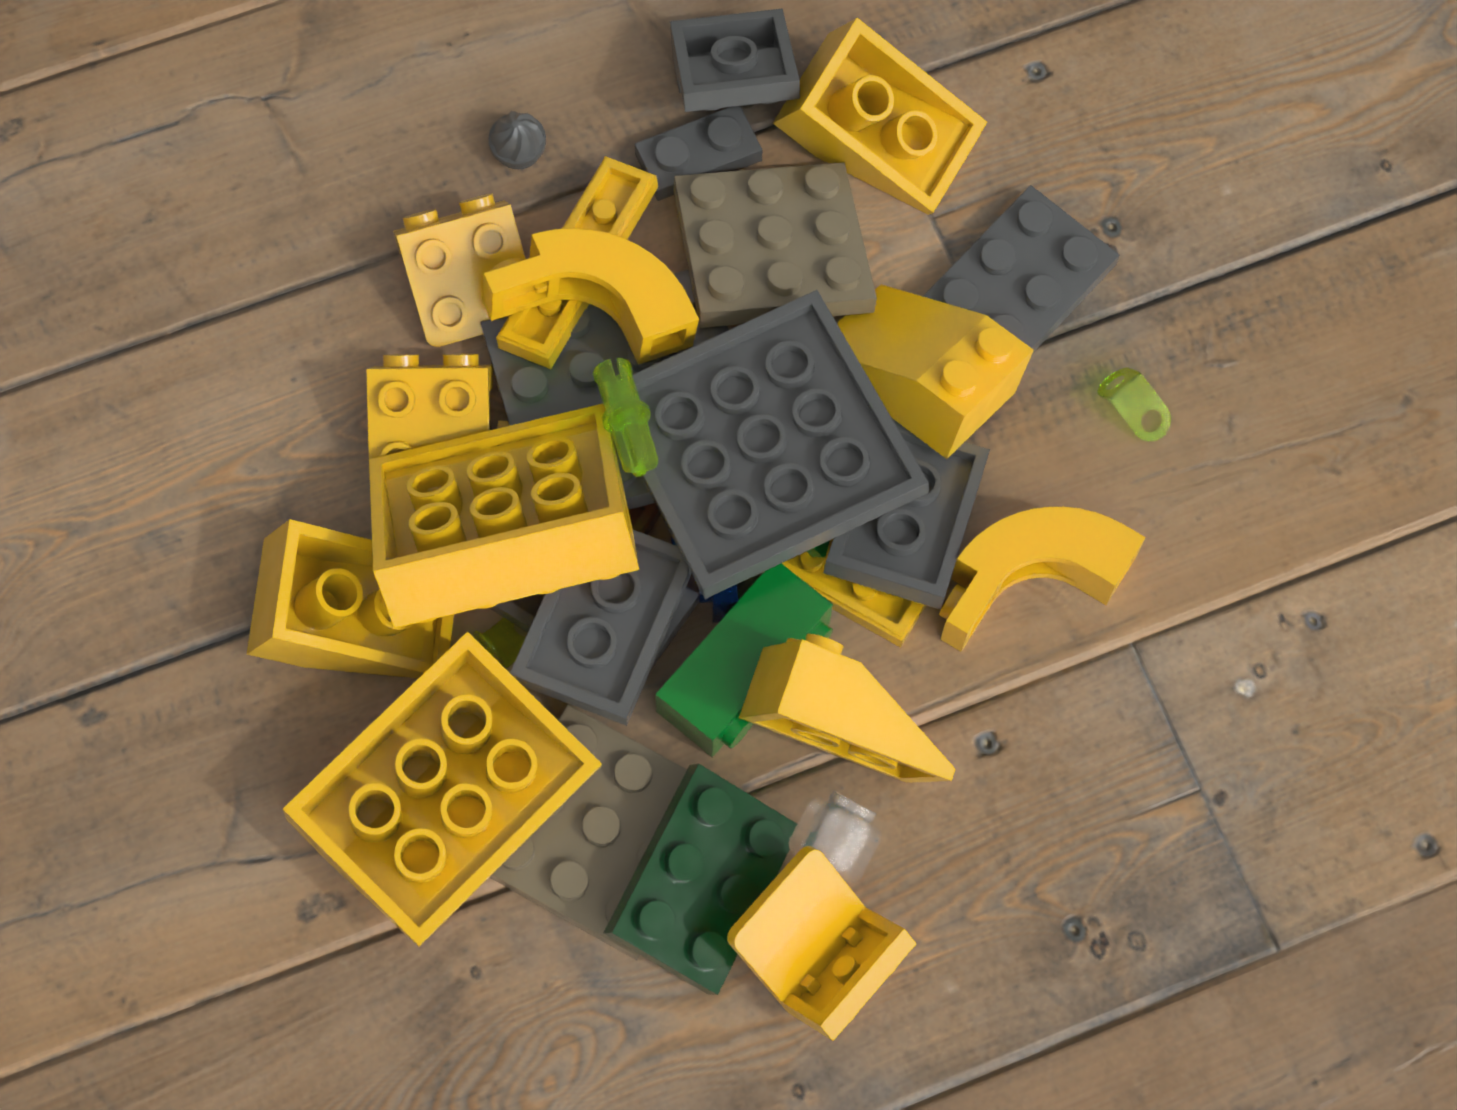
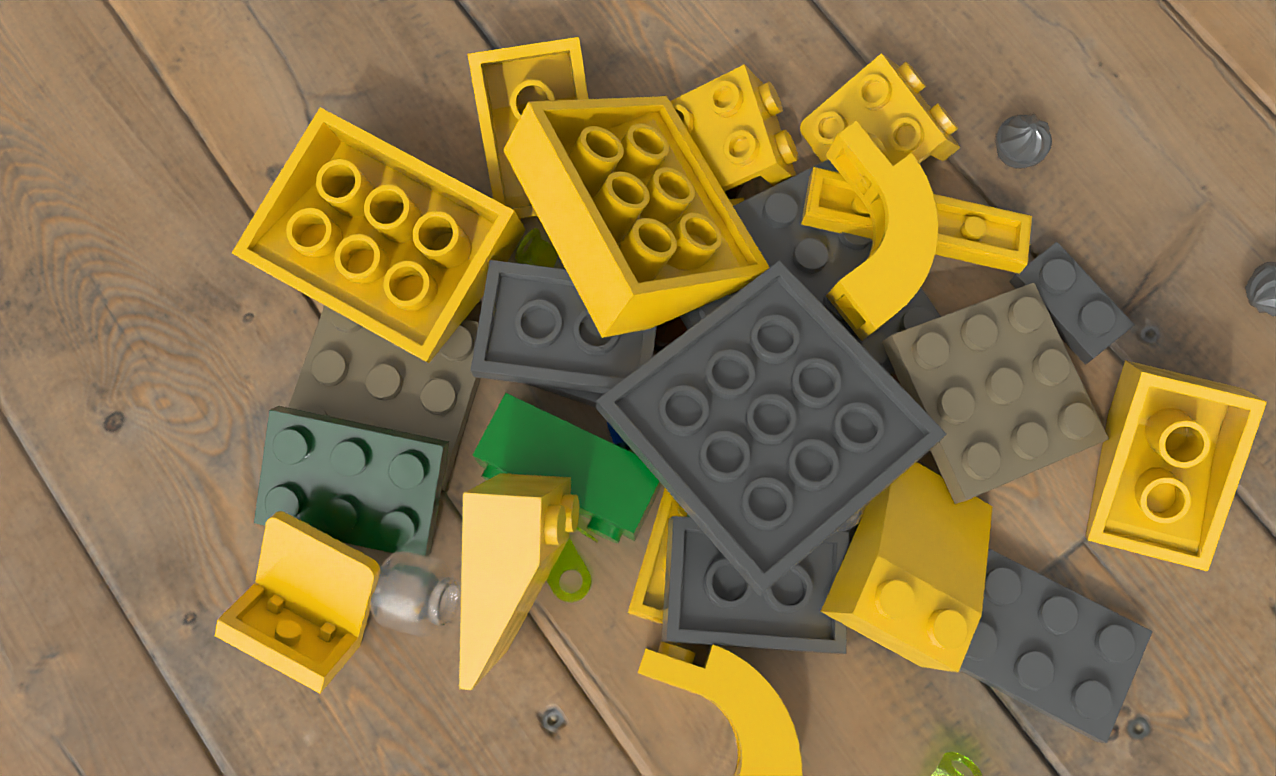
camera: 80 degrees right, 5 degrees up
(626, 417) = (750, 285): clear neon green axle -> none
(734, 60) = (1175, 302): dark grey plate -> none

